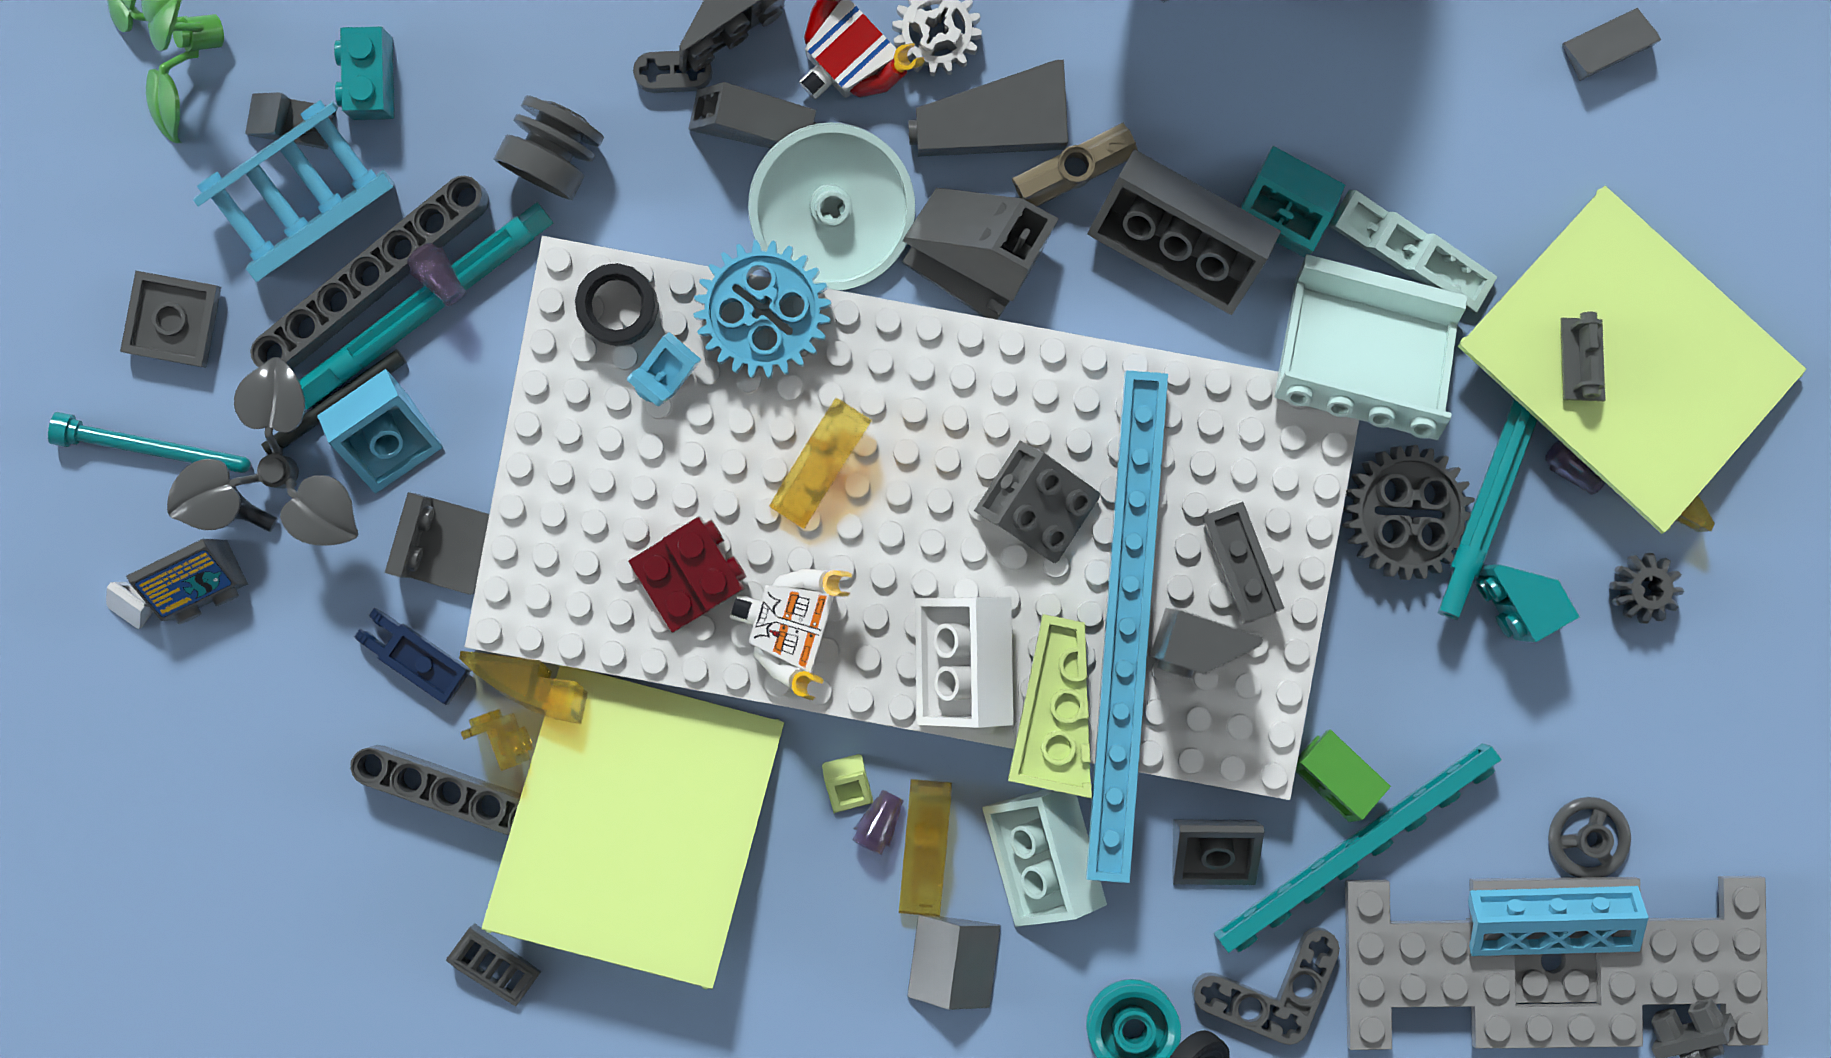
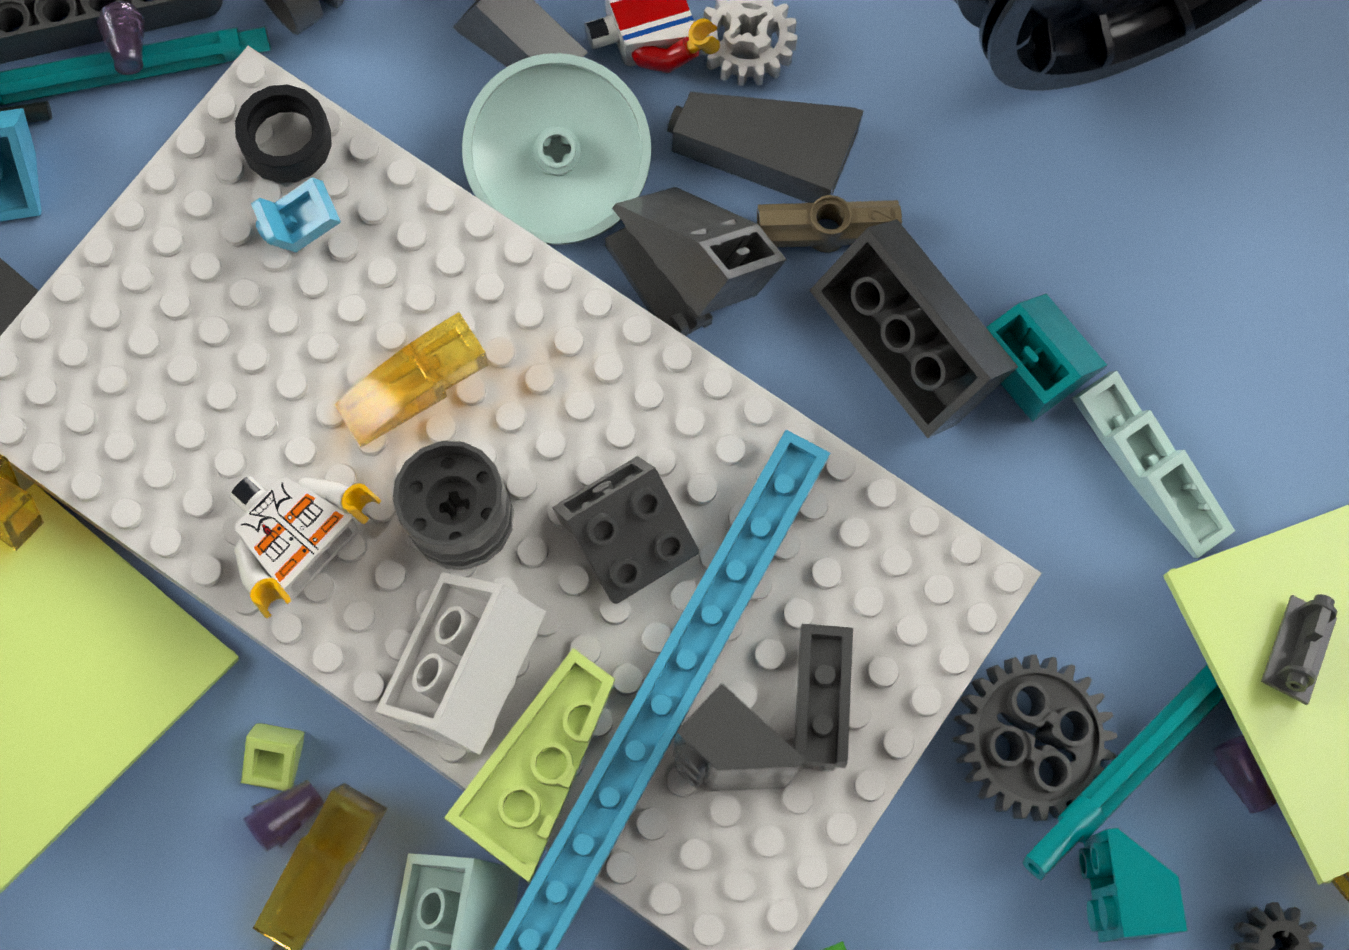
camera: 20 degrees right, 15 degrees down
(688, 573) = (212, 433): dark red plate -> none
(786, 281) = (389, 219): medium azure gear -> none
(881, 544) = (427, 498): none -> dark grey wheel
(1370, 347) = (1066, 534): light aqua panel -> none

